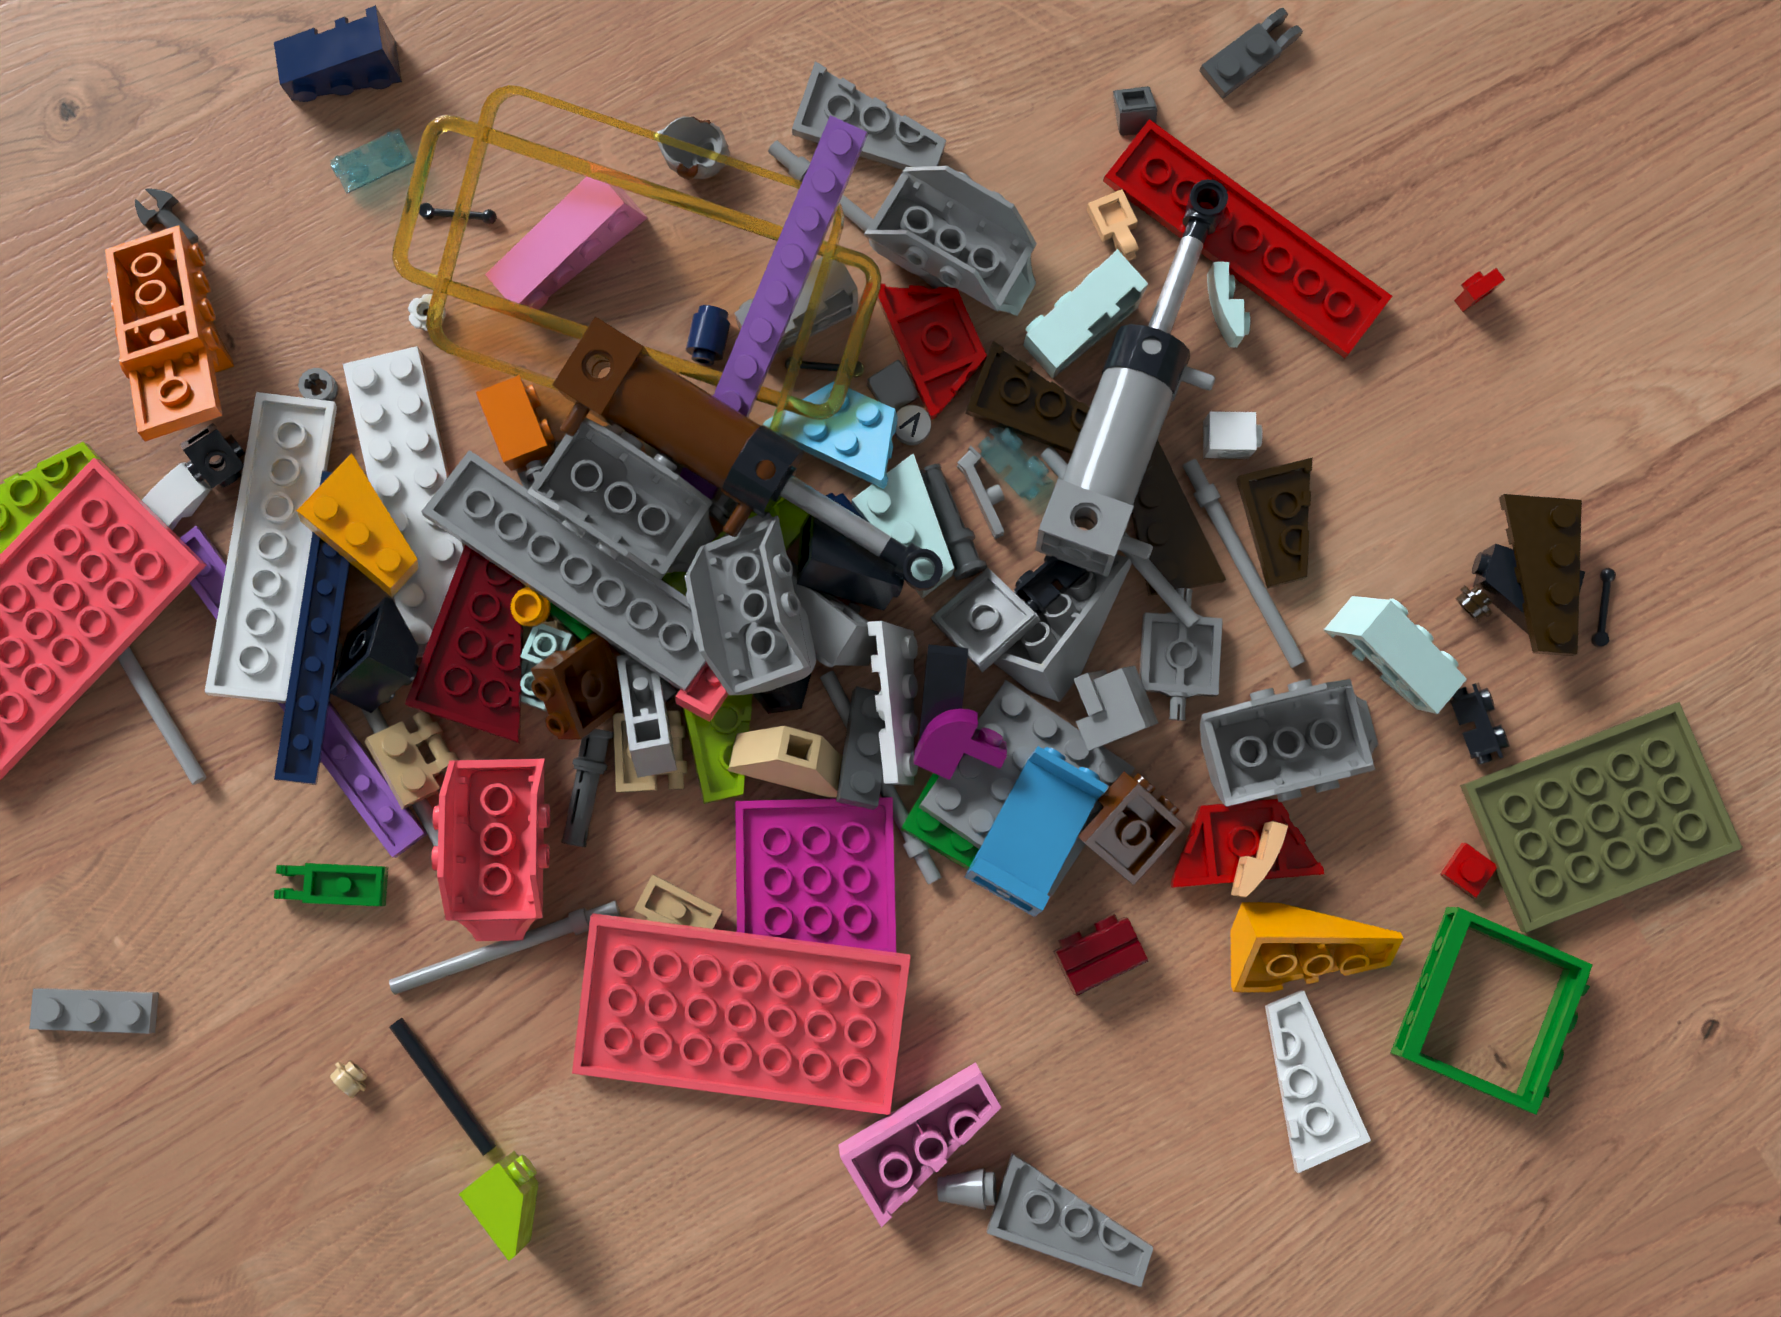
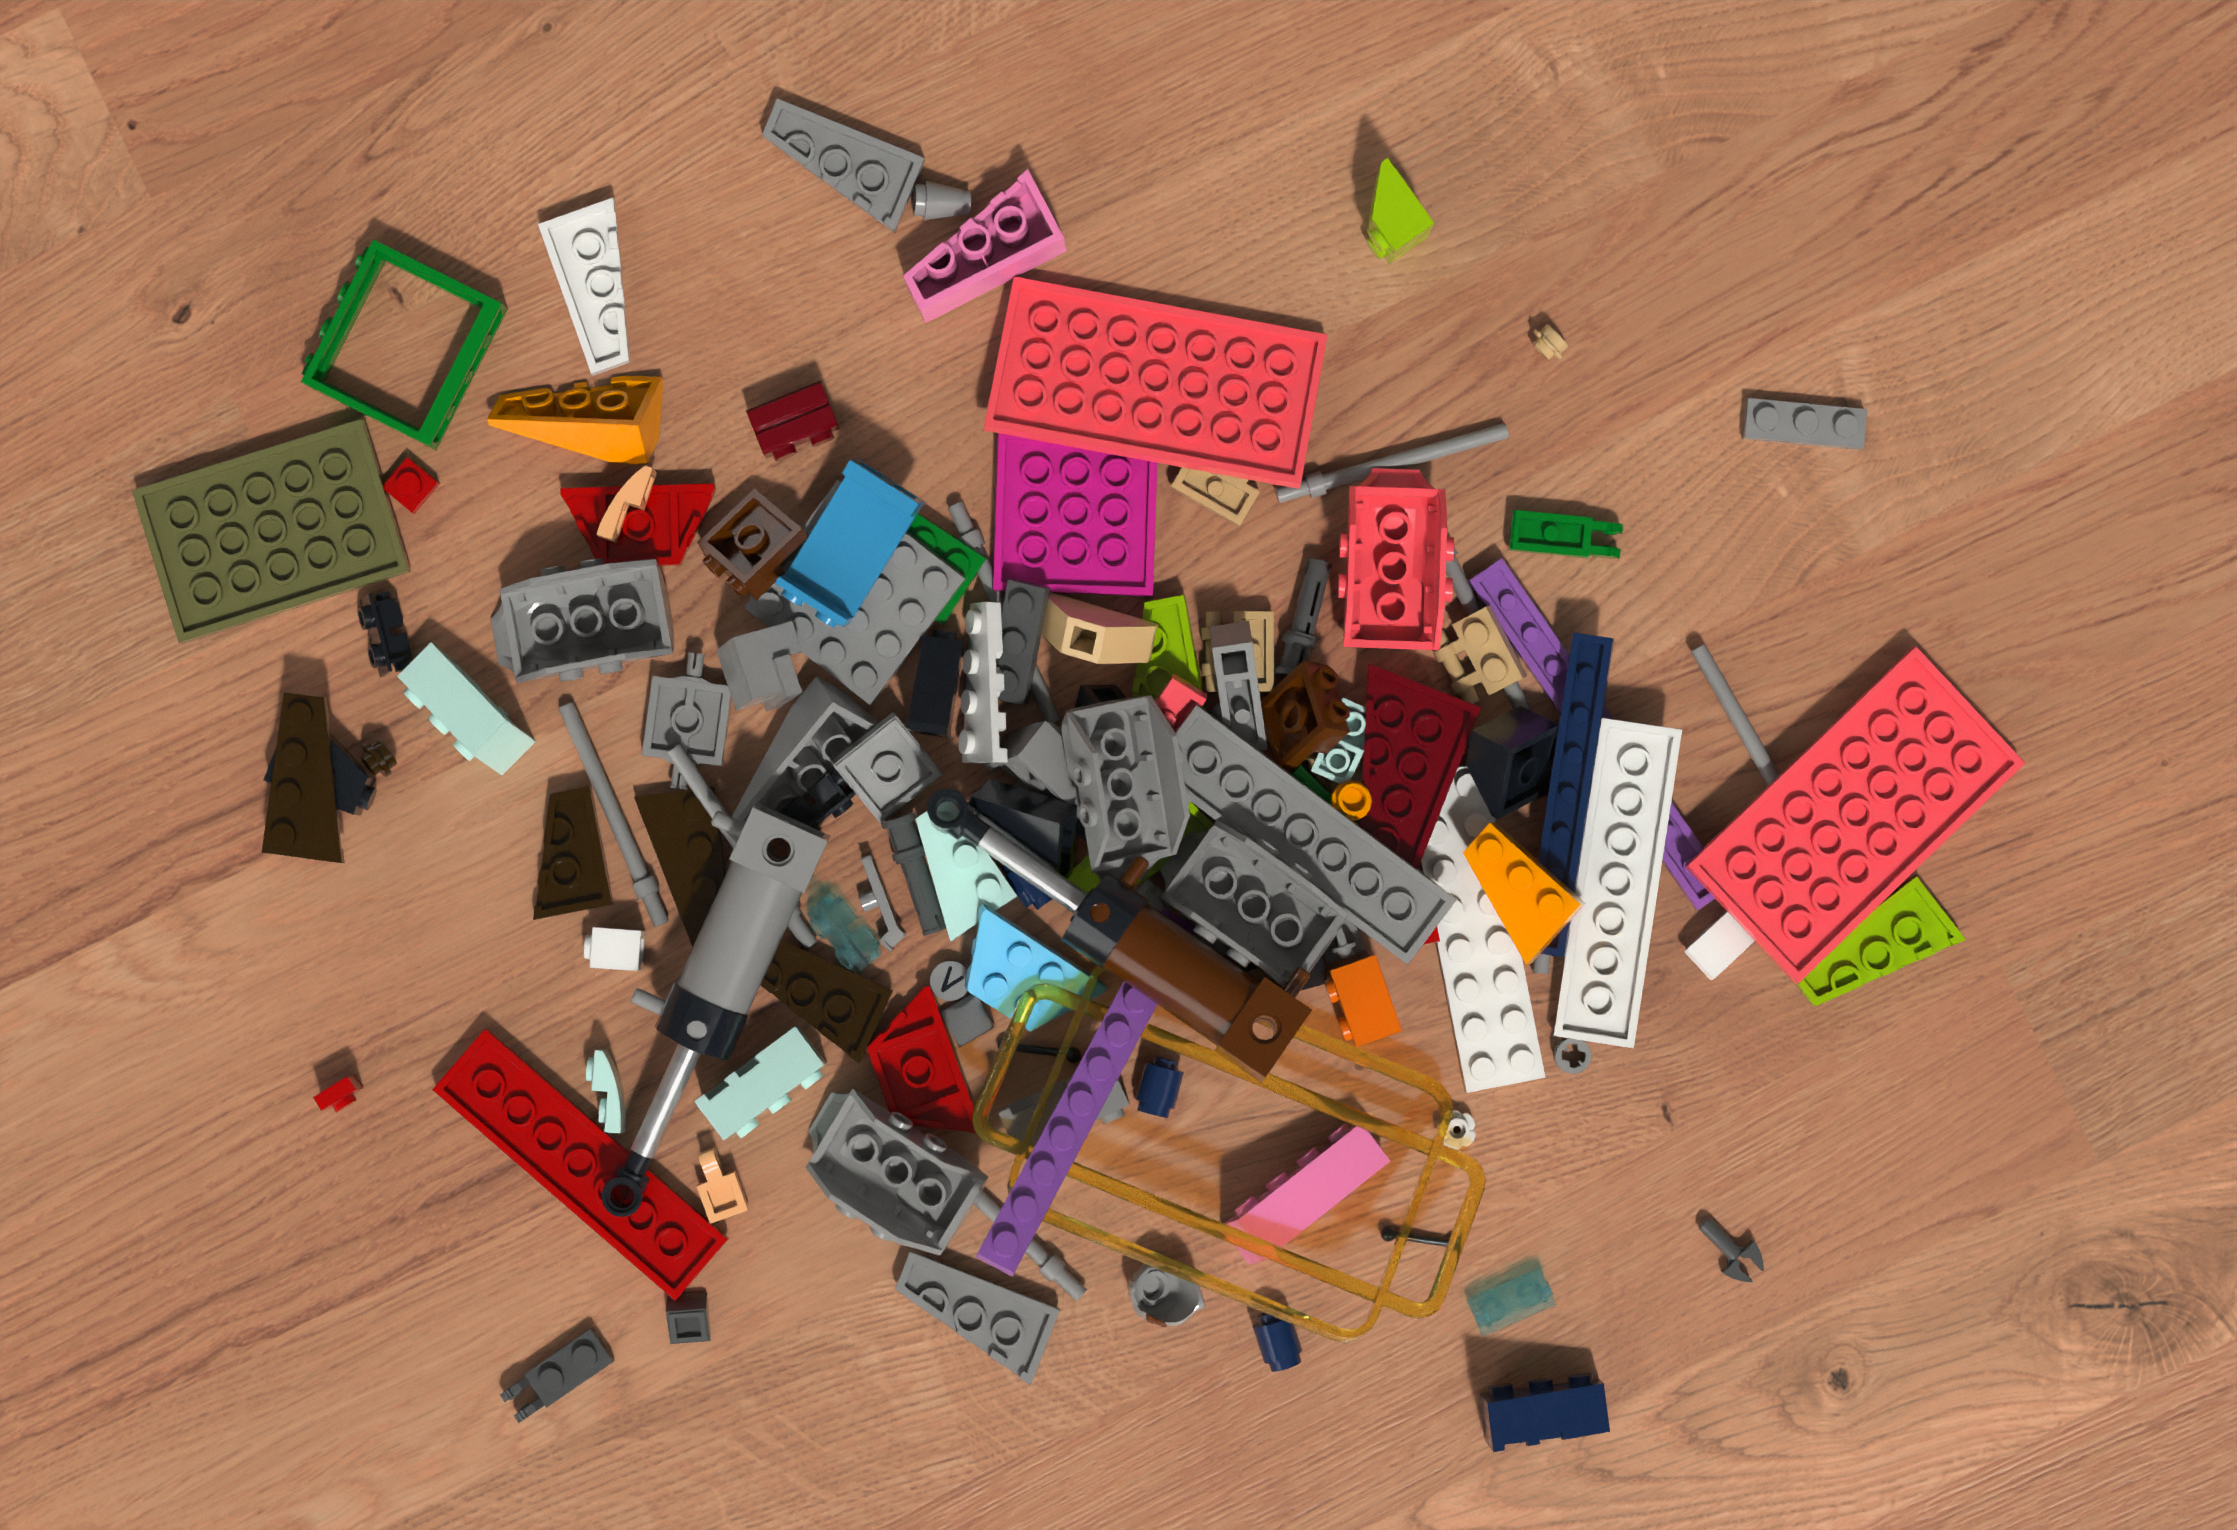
camera: 175 degrees left, 5 degrees up
(166, 331) = (1719, 1108): orange wedge -> none
(203, 447) = (1678, 981): black brick -> none
(442, 1086) = (1458, 330): black bar -> none
(585, 128) = (1277, 1342): none -> dark blue brick
(953, 735) = (925, 643): magenta brick -> none
(1601, 638) = (249, 716): black hinge -> none

